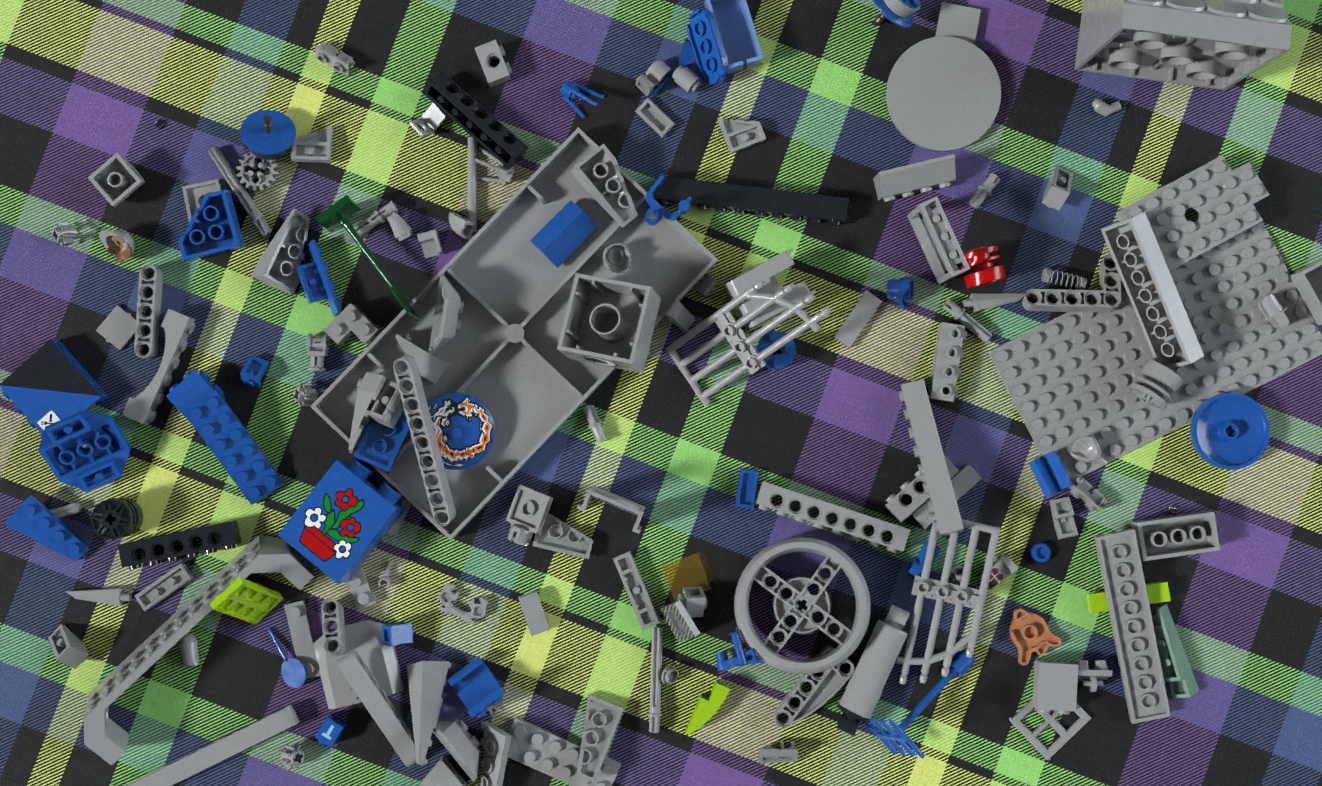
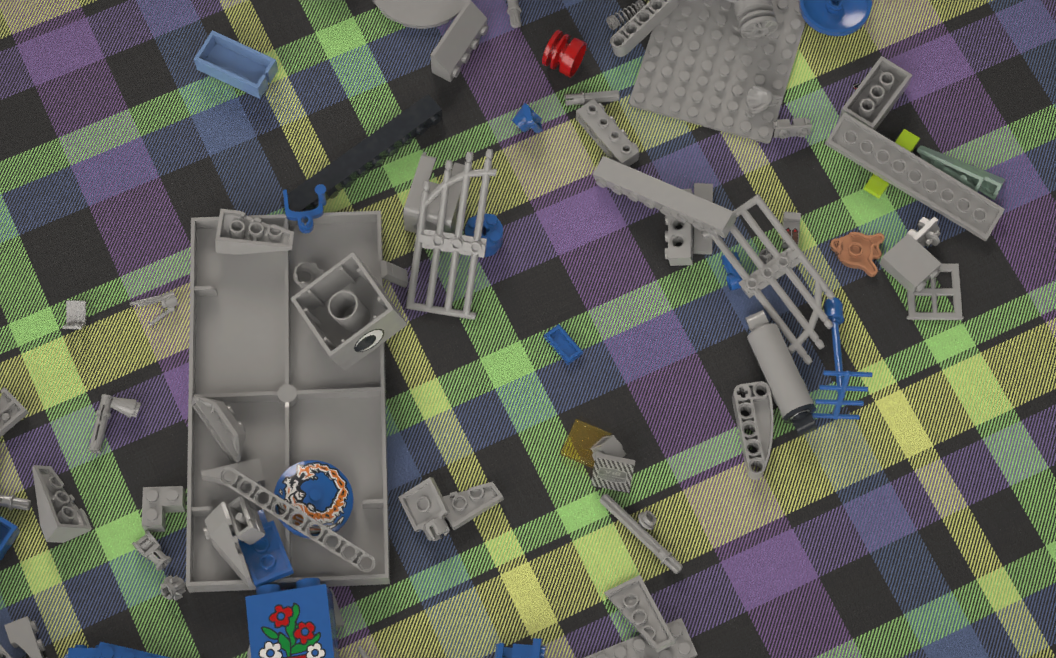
camera: 45 degrees left, 20 degrees down
(254, 371) = (116, 611): blue bracket -> none
(316, 280) = (101, 500): blue bracket -> none
(338, 215) = (72, 437): dark green piece -> none
(430, 243) = (161, 397): light grey panel -> none
(461, 225) = (171, 363): light grey brick -> none
(472, 182) = (151, 331): light grey piece -> none
(475, 120) = (110, 284): black brick -> none
(477, 611) = (428, 630): light grey helmet -> none
(489, 52) = (92, 245): light grey brick -> none
(533, 613) = (503, 573): light grey slope -> none
(564, 233) = (253, 296): blue slope -> none
(572, 90) = (160, 205): blue plant -> none
(595, 424) = (410, 404): light grey axle -> none
(616, 501) = (482, 430): light grey piece -> none
(636, 590) = (560, 486): light grey plate -> none
(654, 117) = (238, 169): light grey tile -> none
(655, 74) = (210, 145): light grey leg -> none
(686, 57) = (220, 112): blue piece -> none
(686, 79) = (235, 125): light grey brick -> none
(706, 285) = (390, 240): light grey slope -> none
(707, 46) = (228, 89): blue tile -> none
(707, 706) = (696, 513): lime slope -> none
(741, 133) = (310, 125): light grey wing -> none
(742, 657) = (681, 463): blue piece -> none
(769, 649) = (673, 325): light grey wheel -> none
(771, 755) = (782, 496): light grey plate -> none
(857, 319) = (518, 165): light grey tile -> none
(898, 534) = (697, 270): light grey brick -> none
(937, 240) = (520, 47): light grey window -> none
(985, 301) = (589, 77): light grey bar -> none
(1040, 552) = (804, 193): blue tile -> none
(1050, 473) = (753, 136): blue panel -> none
(1063, 518) = (792, 157): light grey slope -> none

